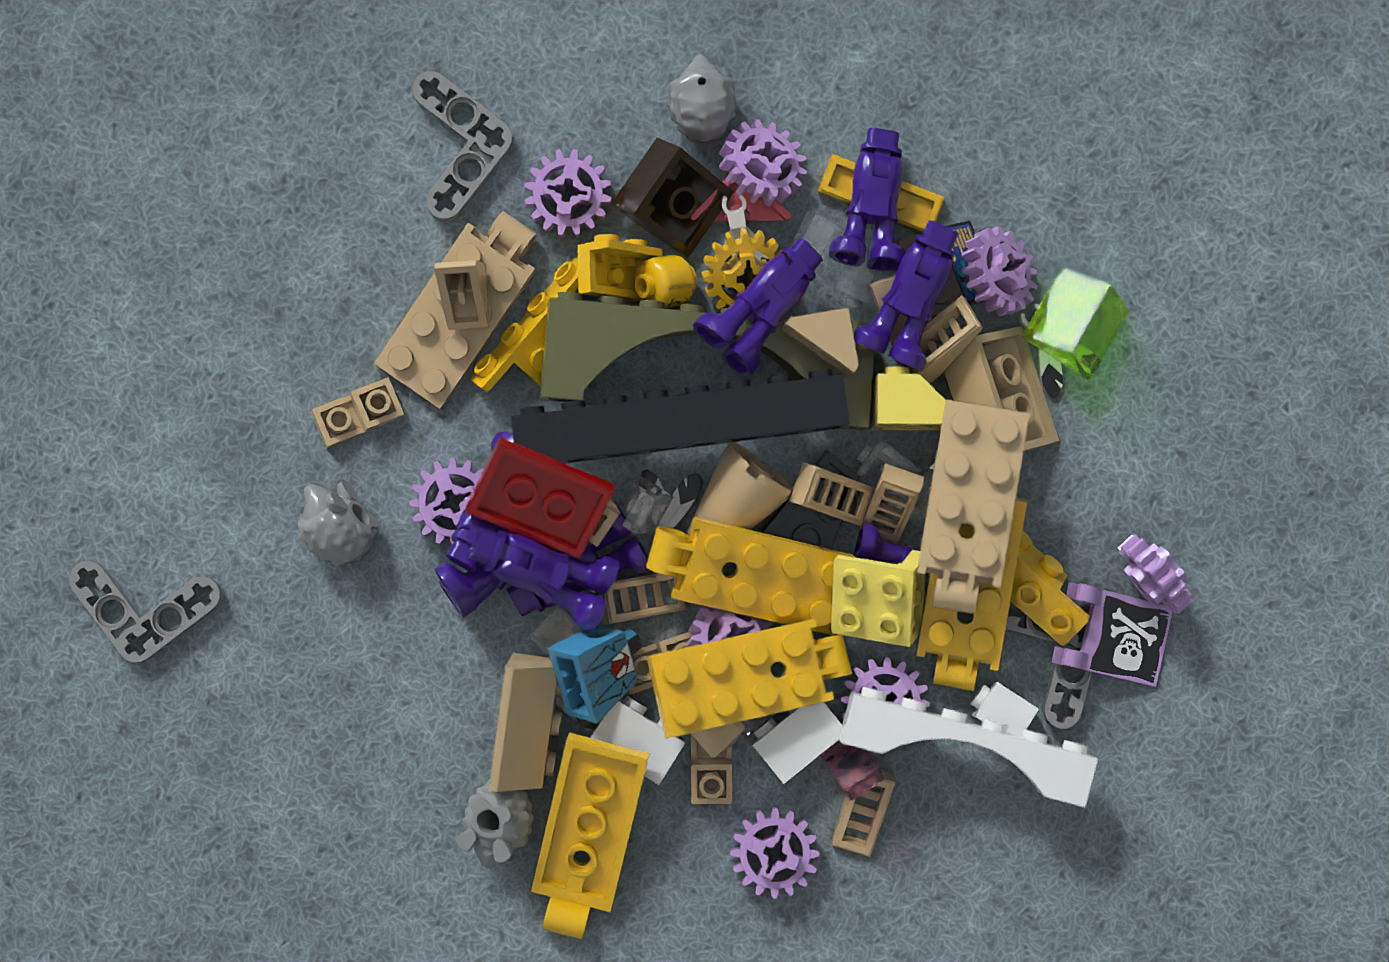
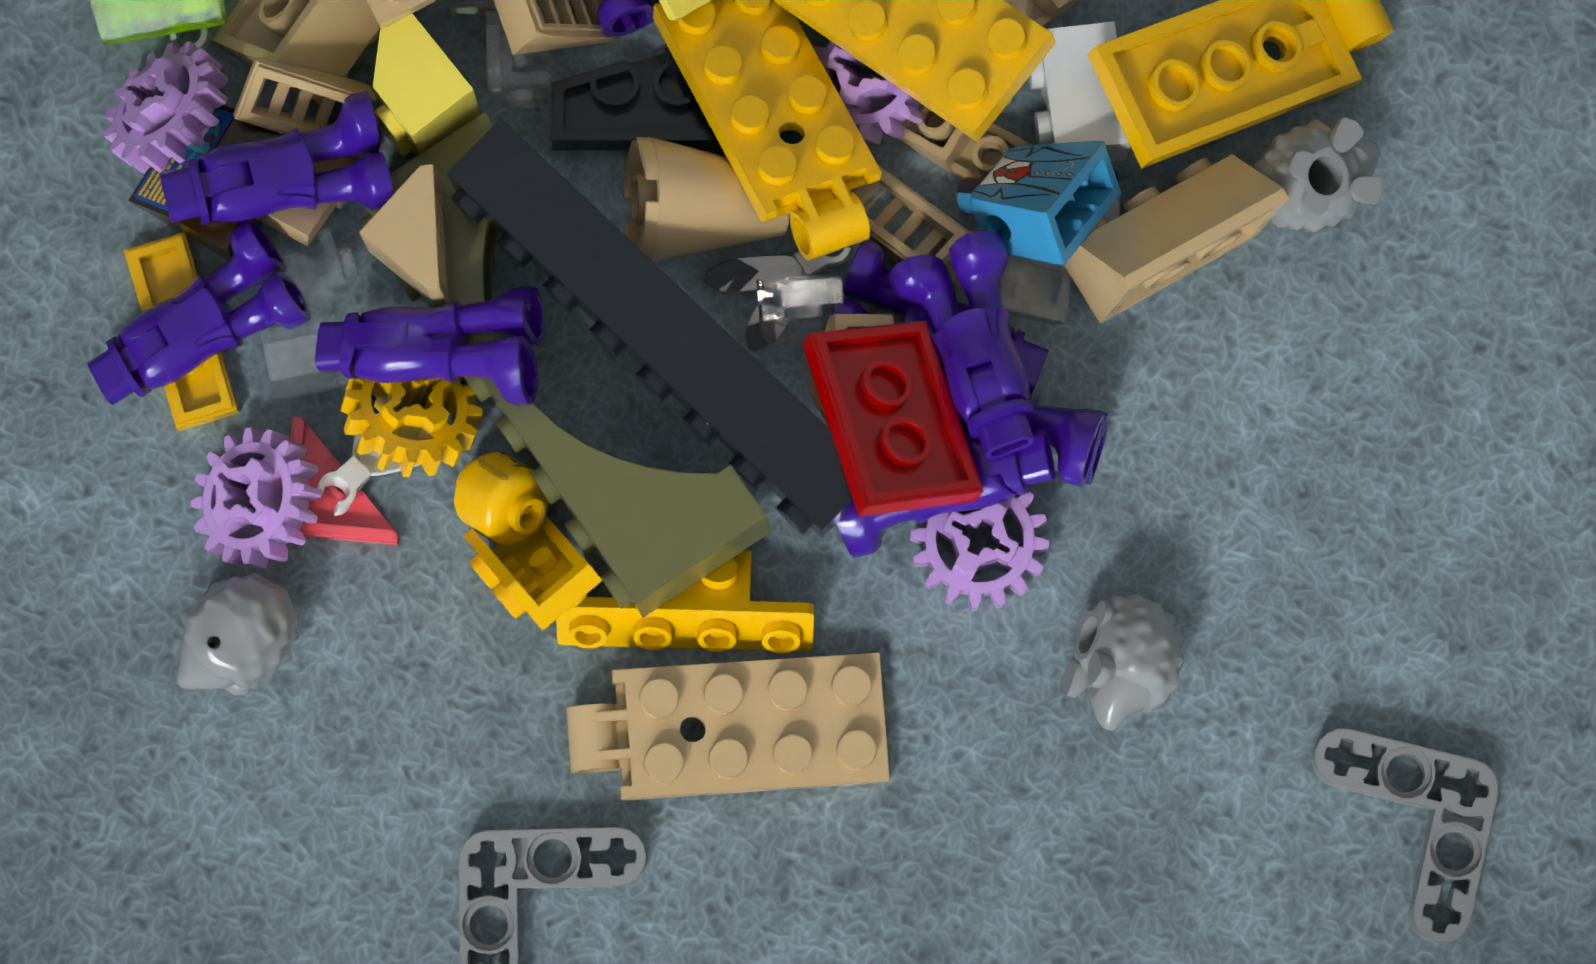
camera: 130 degrees left, 5 degrees down
(357, 412) = (966, 751): tan slope -> none
(463, 293) = (715, 723): tan slope -> none
(586, 196) = (457, 722): lavender gear -> none
(667, 191) = (389, 585): dark brown slope -> none
(807, 485) = (611, 121): tan slope -> none

